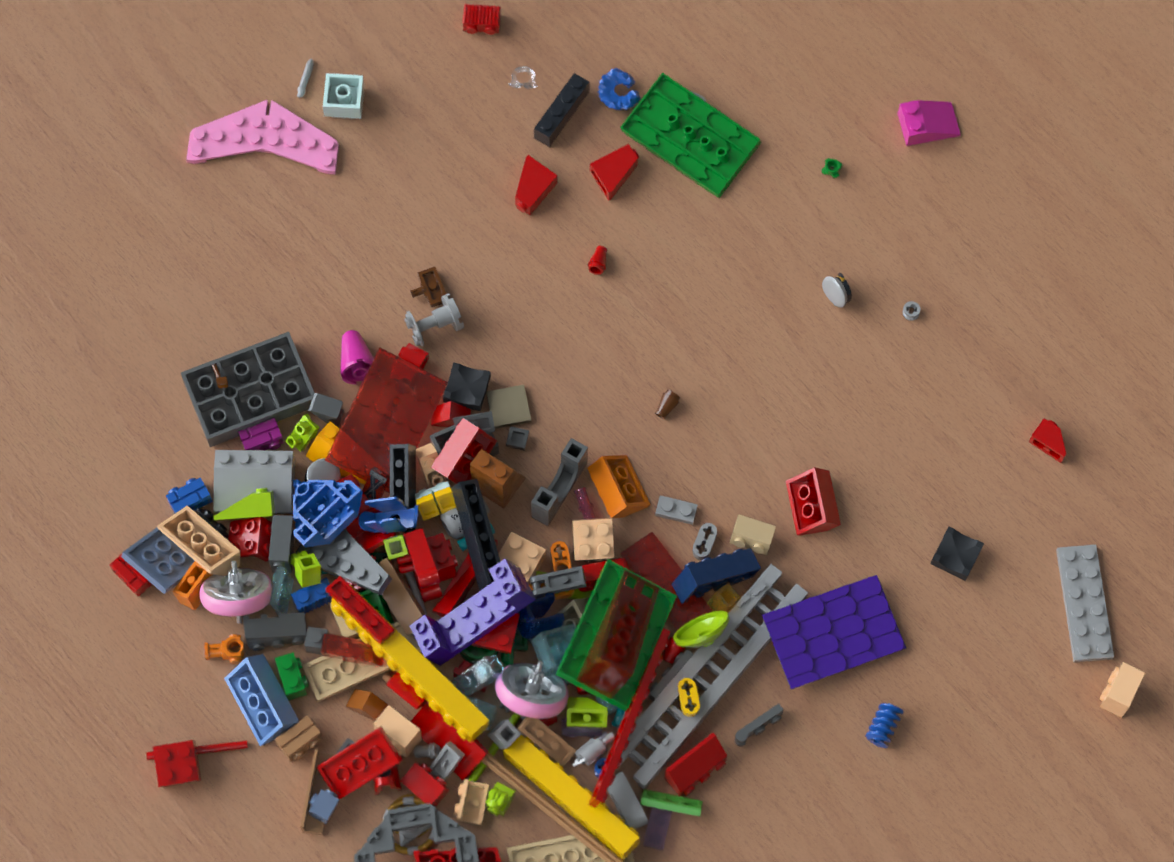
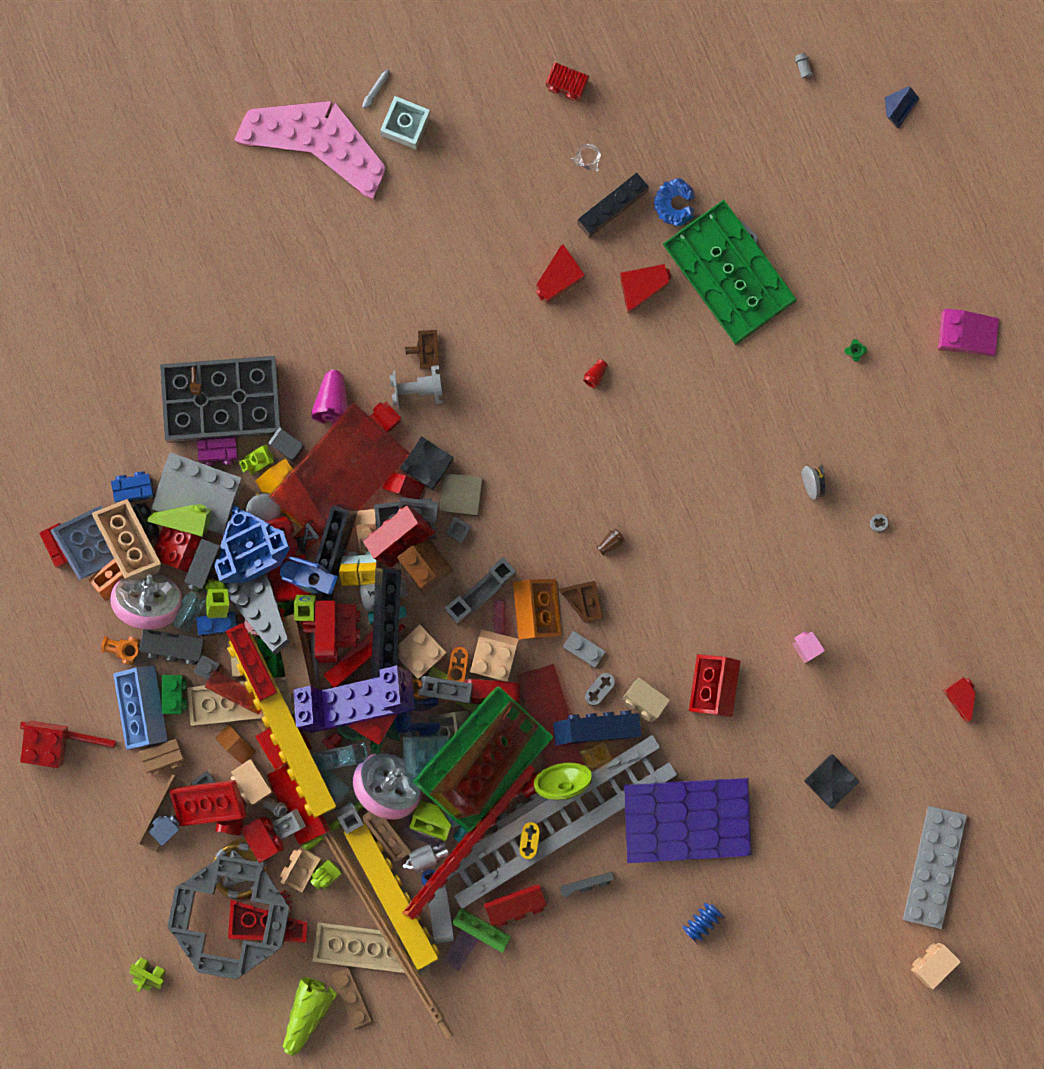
camera: 20 degrees right, 15 degrees up
(660, 464) = (584, 600): none -> reddish brown wing
(888, 436) = (807, 646): none -> bright pink brick

